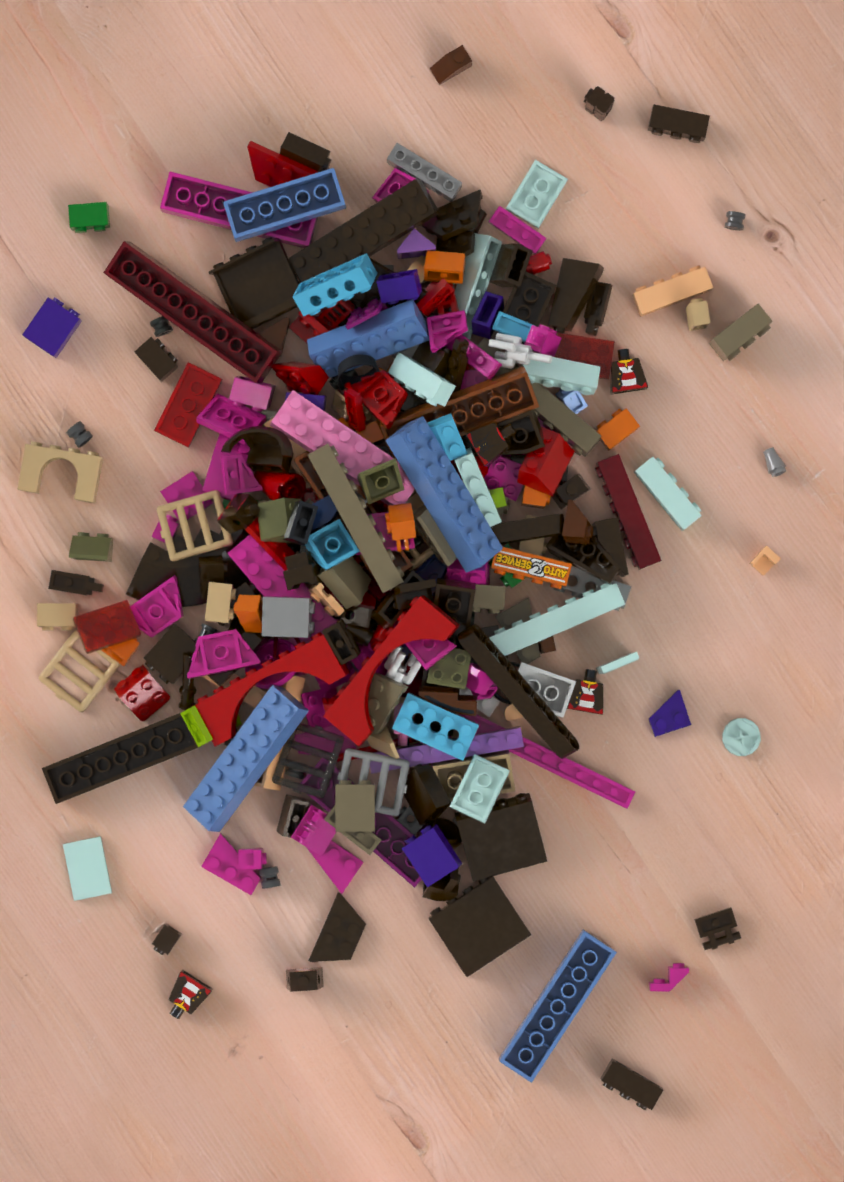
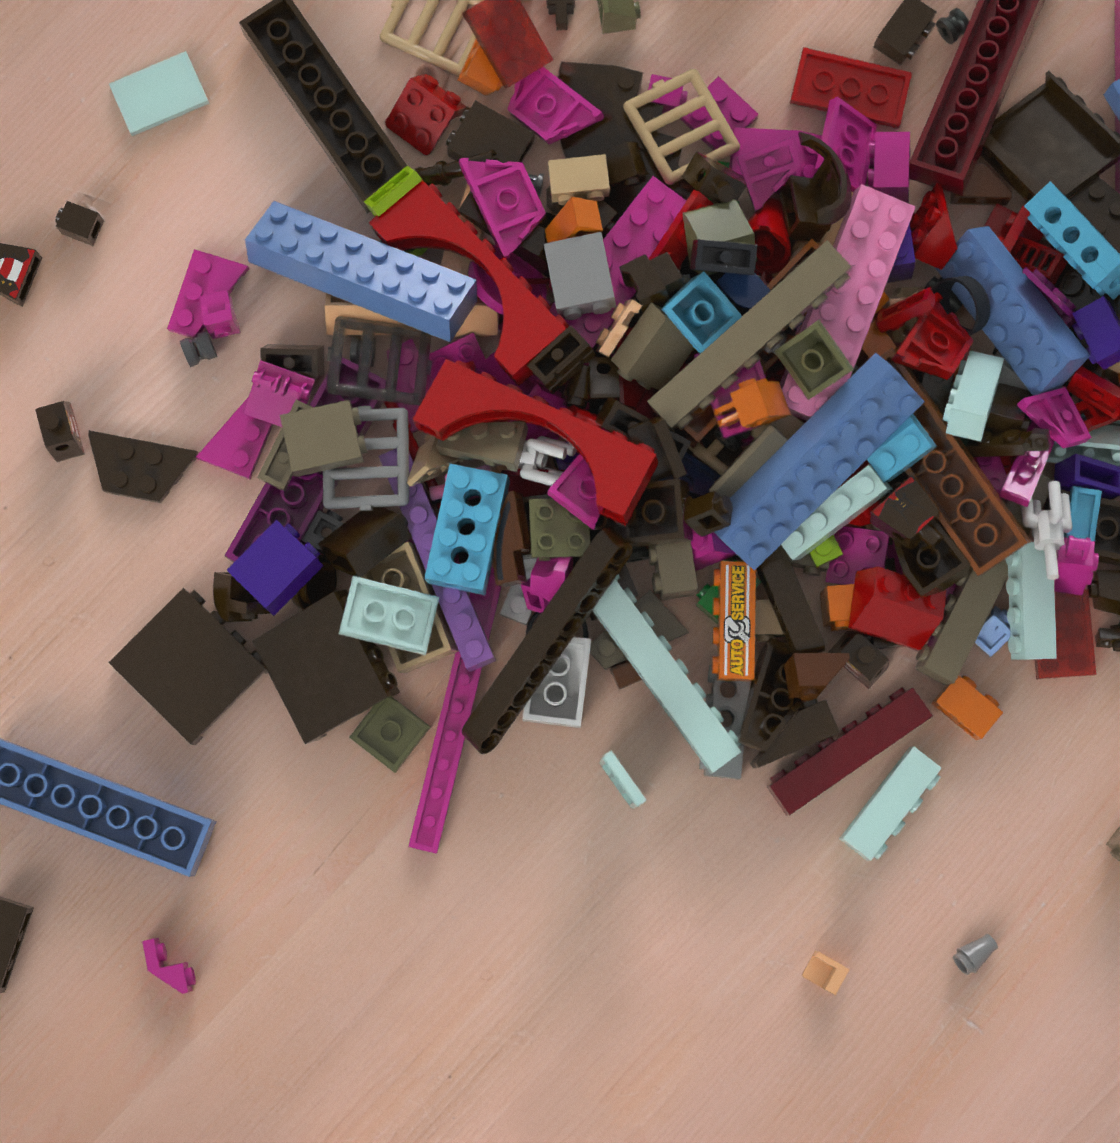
camera: 70 degrees right, 5 degrees down
(462, 570) = (708, 513): none -> dark brown brick
(511, 713) = (510, 642): light nougat brick -> none
(551, 805) = (390, 733): none -> olive tile
(587, 694) = (564, 749): torso -> none
(627, 374) = (1051, 704): torso -> none
(670, 716) = (560, 881): dark purple wing -> none
(715, 923) = (266, 1020): dark brown plate -> none
(741, 737) = (553, 996): light aqua tile -> none

